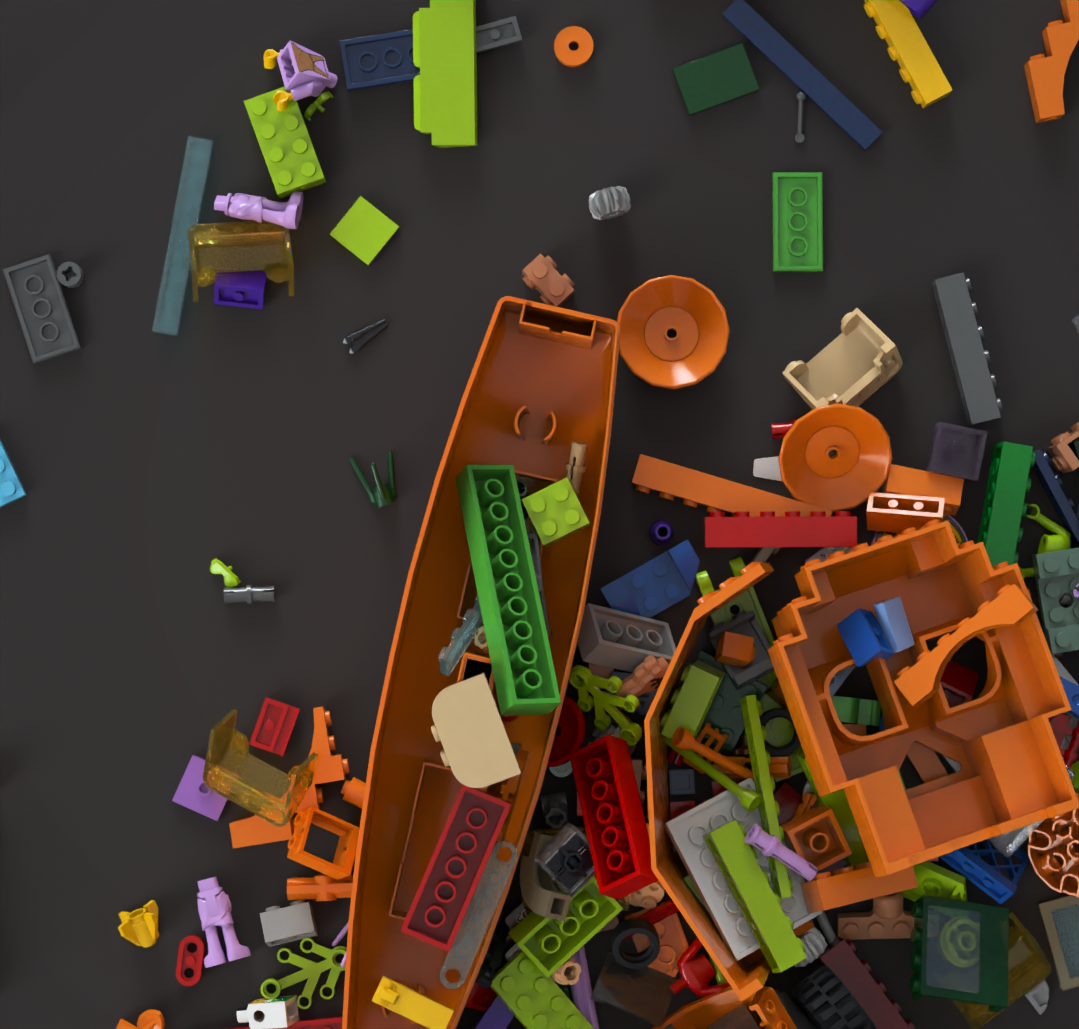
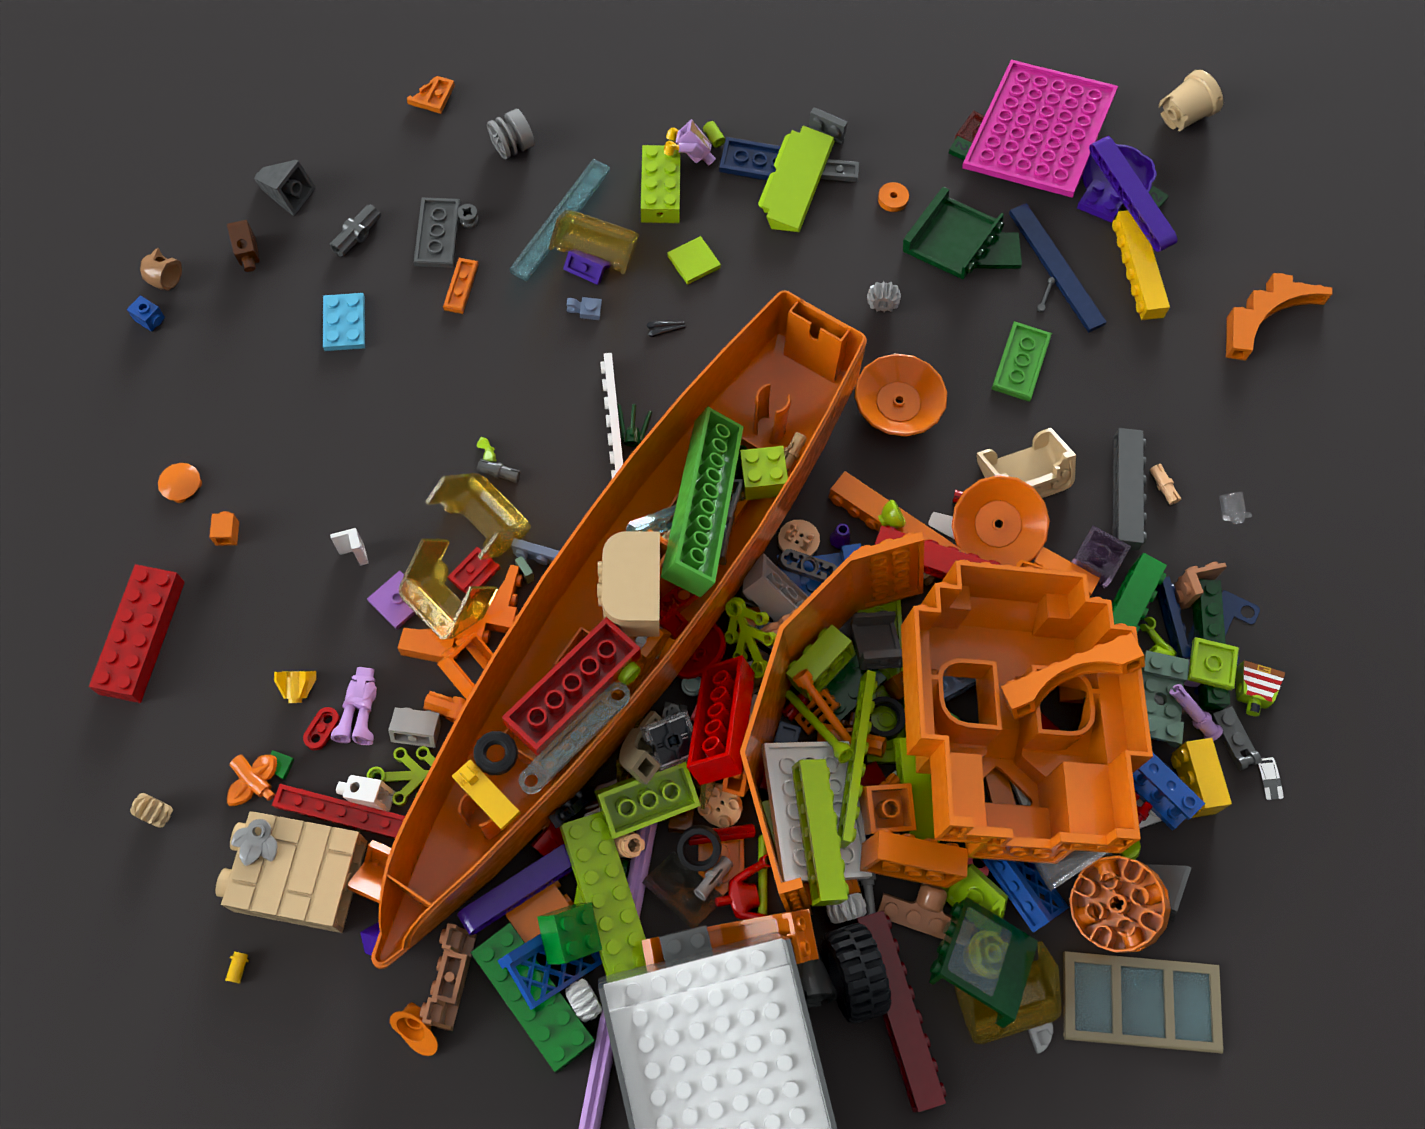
camera: 20 degrees right, 20 degrees down
(74, 144) = (510, 133): none -> light grey wheel
(102, 371) = (460, 285): none -> orange tile
(135, 748) = (350, 541): none -> white panel
(168, 1010) = (283, 764): none -> green tile
(259, 648) = (484, 508): none -> clear yellow windscreen
(260, 208) = (644, 228): lavender piece -> none
(265, 344) = (588, 308): none -> sand blue plate
(317, 104) = (700, 169): lime piece -> none
(321, 39) = (714, 134): none -> lime piece
(329, 703) = (525, 570): none -> sand green tile
(342, 680) = (533, 551): none -> sand blue plate
(354, 486) = (612, 419): none -> white plate
(405, 976) = (487, 741): none -> black tyre
(507, 827) = (629, 673): none -> lime tile
(522, 728) = (673, 623): none -> red tile
(623, 598) = (795, 556): none -> dark grey beam
(628, 552) = (791, 533): none -> light nougat plate
(660, 967) = (721, 868): none -> light grey pin
(664, 79) = (951, 235): none -> dark green panel
(712, 495) = (892, 515): none -> lime brick
(735, 649) = (870, 634): orange brick -> none
(772, 847) = (849, 791): lavender pin -> none
(864, 637) = (985, 645): blue panel -> none
(894, 623) = (1012, 649): light blue brick -> none
(1006, 325) = (1165, 484): none -> light nougat pin

